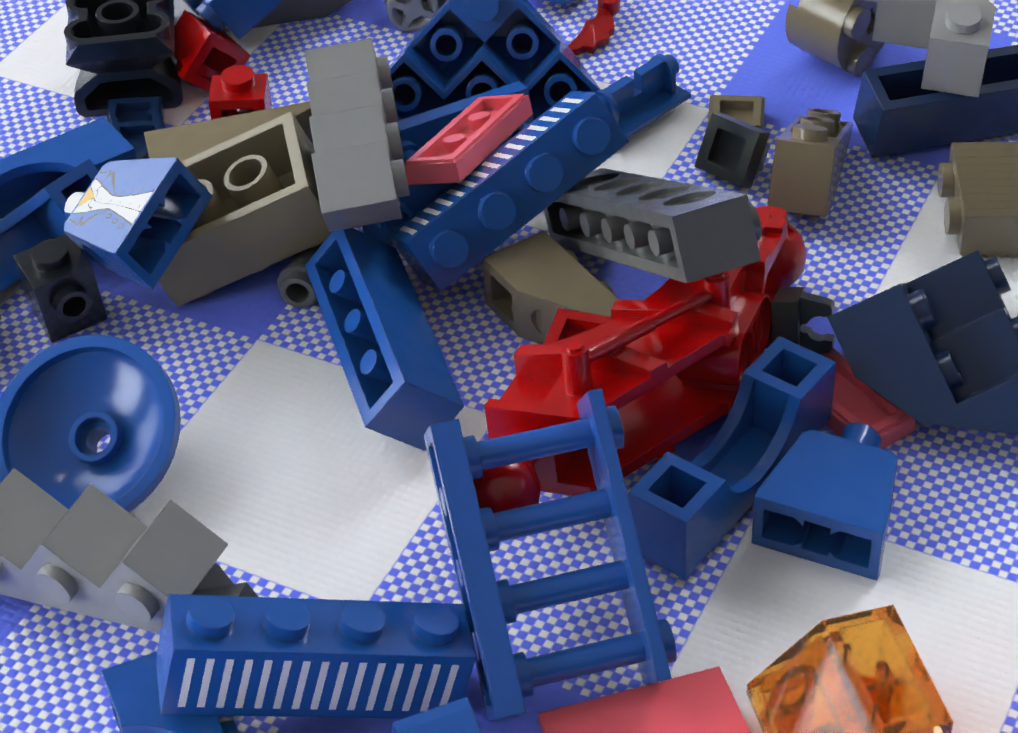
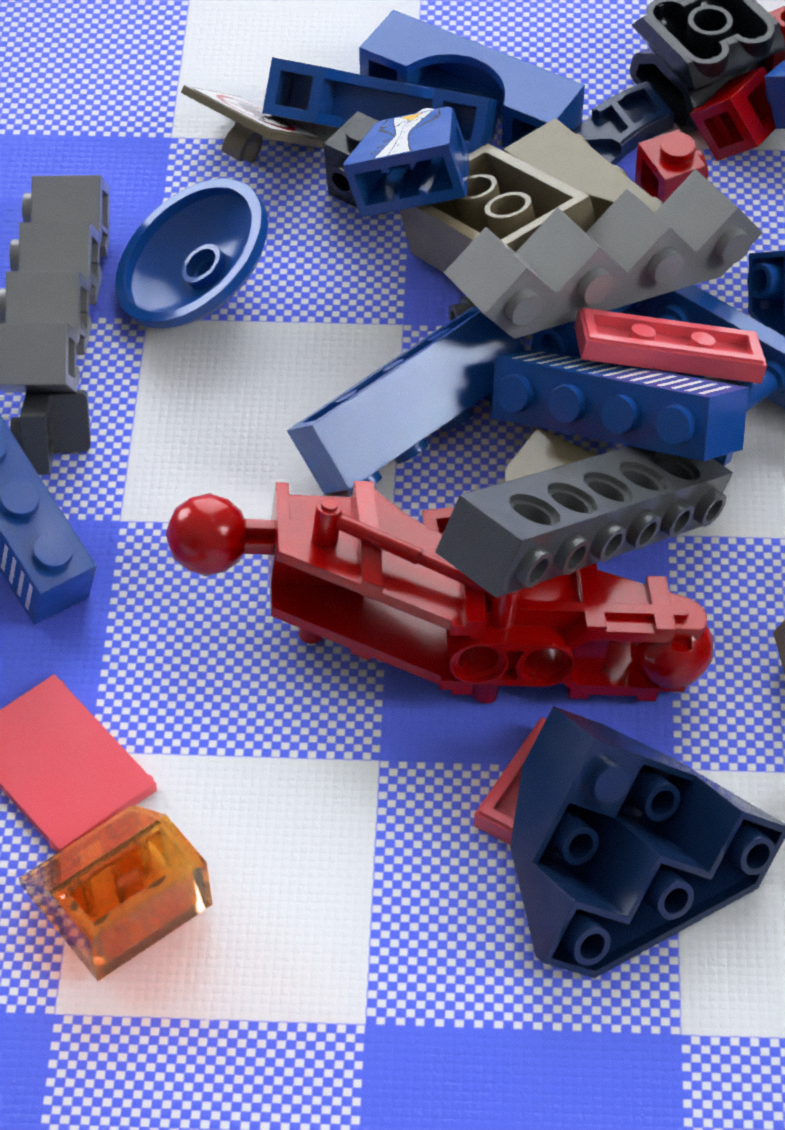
camera: 65 degrees right, 10 degrees up
(477, 531) = (103, 559): blue fence -> none
(690, 506) = (306, 694): blue arch -> none
(792, 311) = (591, 692): pearl dark grey tile -> none
(829, 500) = (379, 804): blue torso -> none

